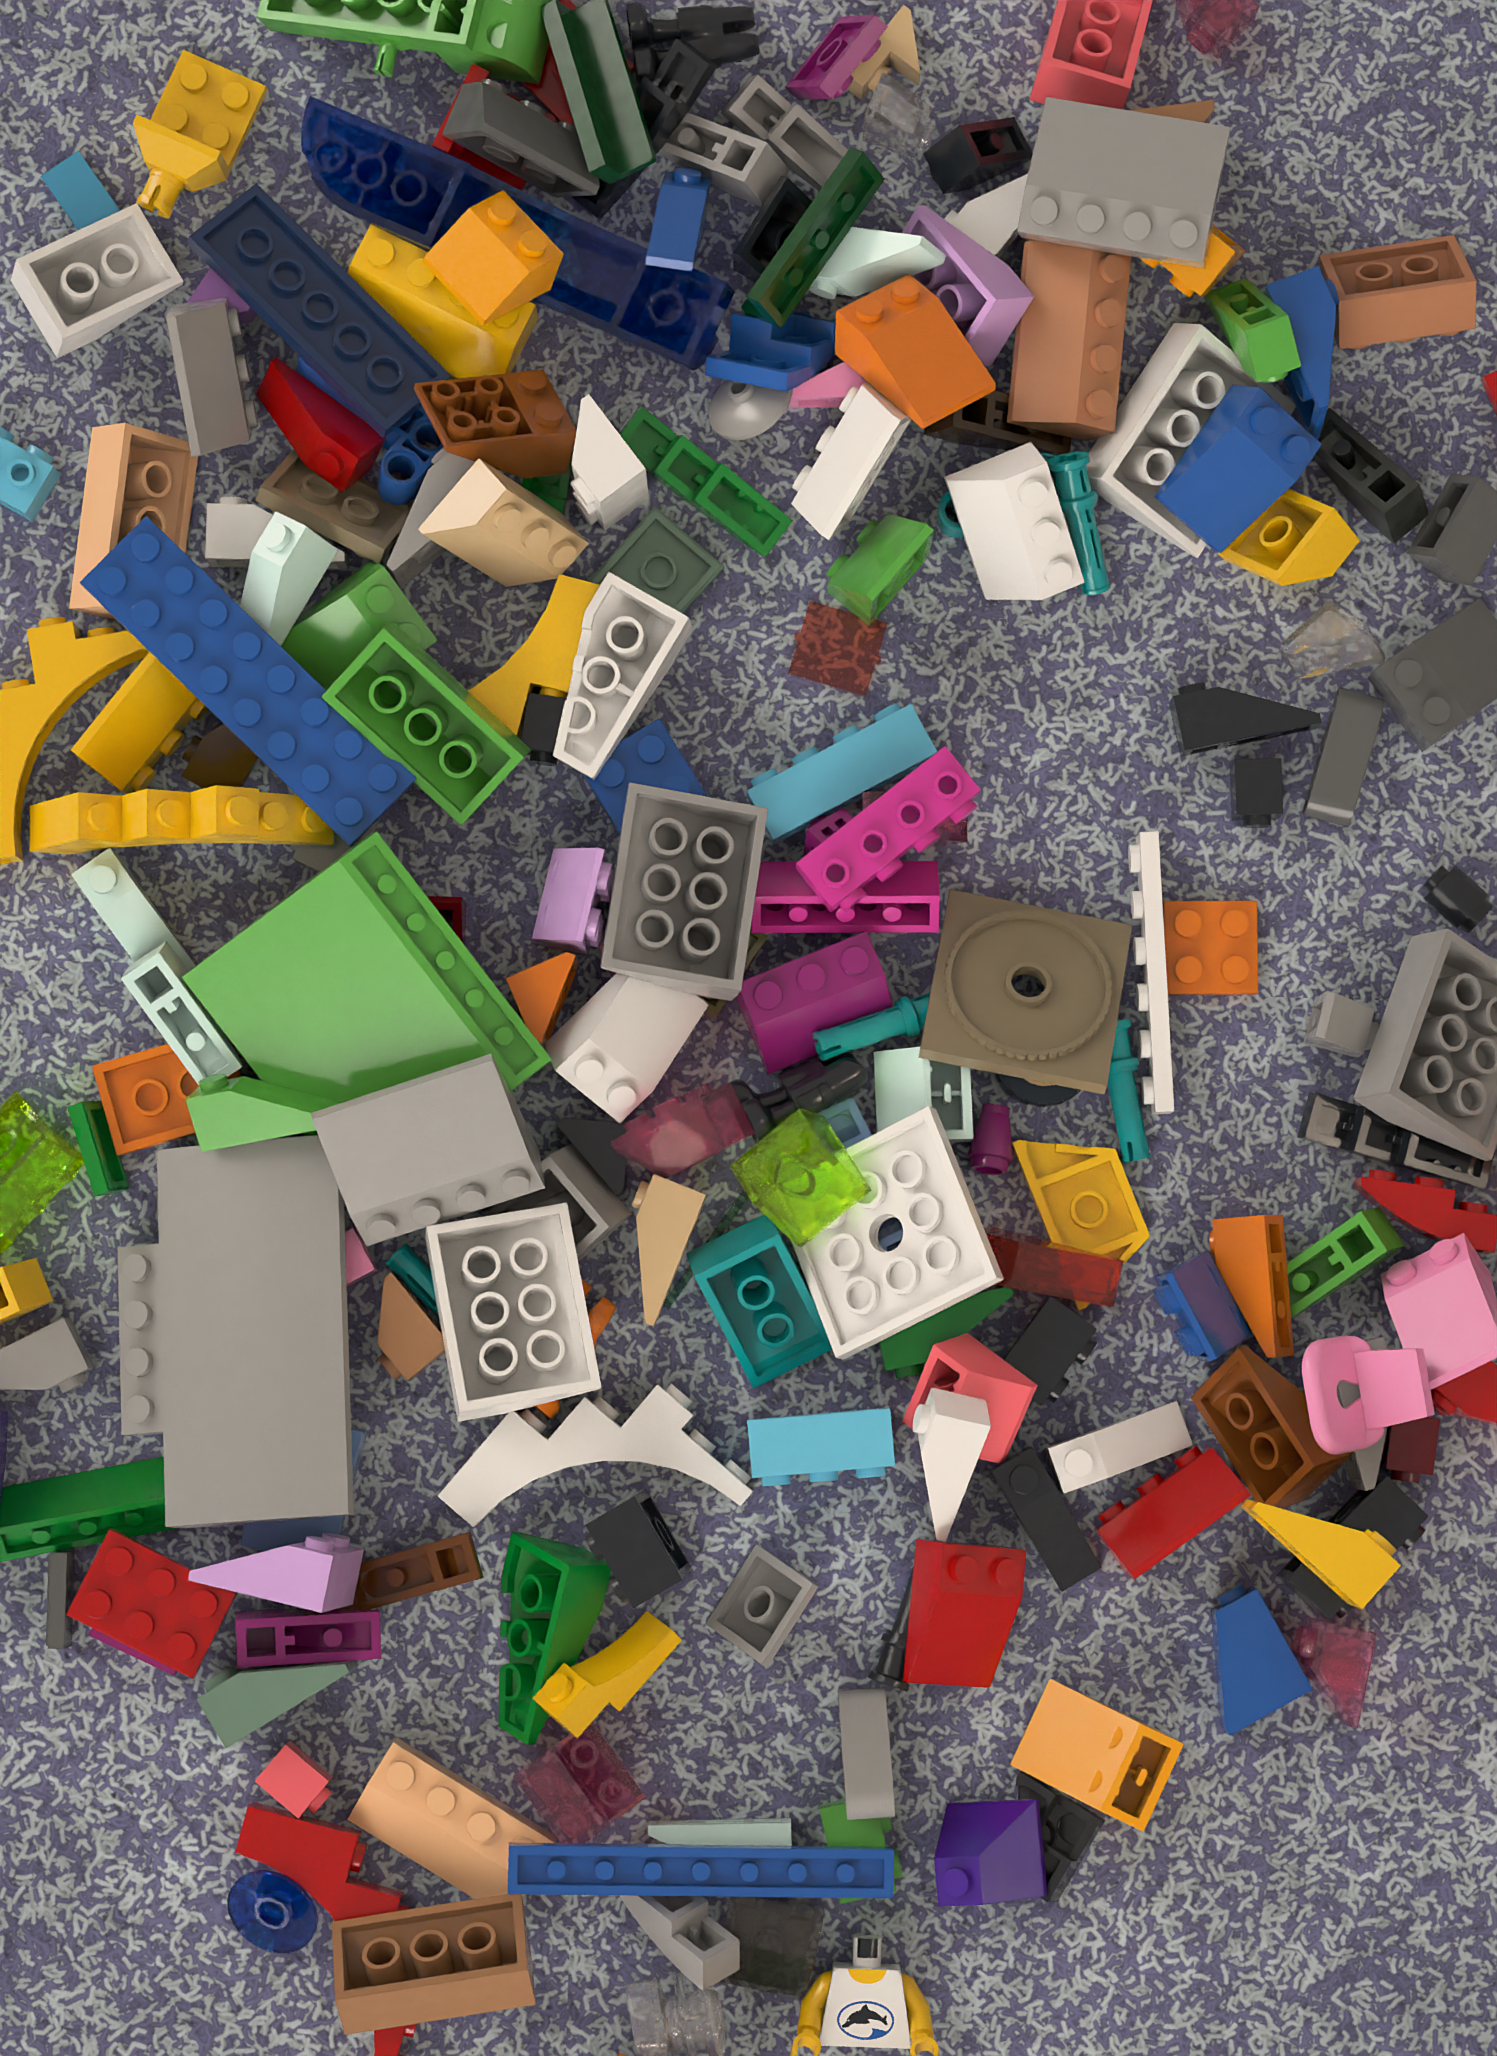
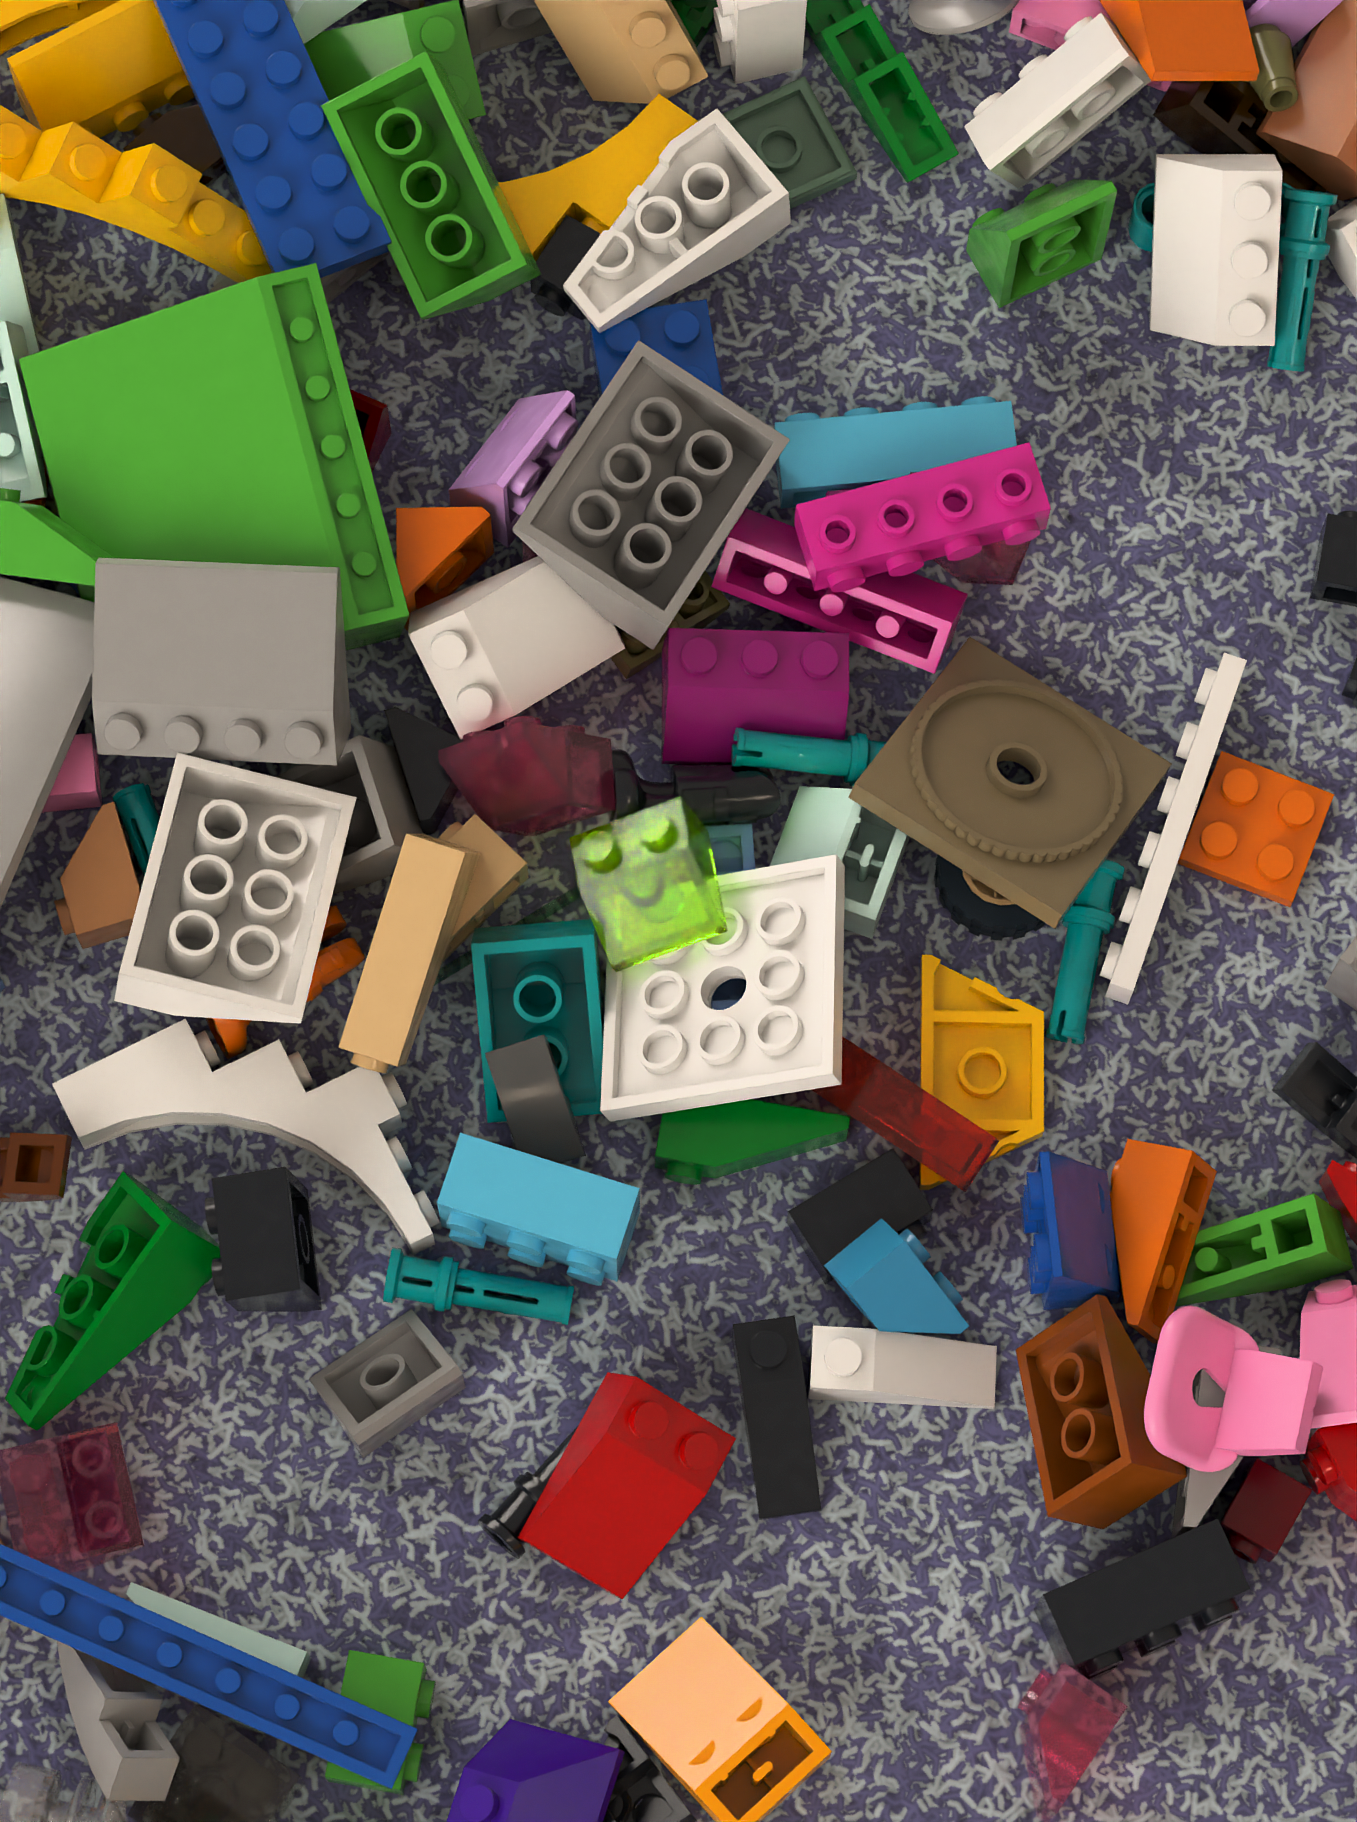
camera: 20 degrees right, 10 degrees down
(612, 1676) = (117, 1385): yellow slope -> none
(652, 1299) = (407, 950): none -> tan slope
(776, 1518) = (552, 1304): none -> teal pin
(784, 1365) = (535, 1100): none -> dark grey slope
(837, 649) = (951, 318): clear red piece -> none
(866, 1753) = (434, 1606): light grey beam -> none
(950, 1440) = (692, 1259): white slope -> none
(974, 1370) = (740, 1227): coral slope -> none
(992, 1141) = (897, 947): magenta cone -> none
(1002, 368) = (1276, 77): none -> olive cone
(1090, 1396) = (891, 1285): none -> dark azure slope
(1170, 1510) = (933, 1467): red slope -> none
(1251, 1660) = (962, 1694): blue slope -> none
(1344, 1558) = (1109, 1563): yellow slope -> none

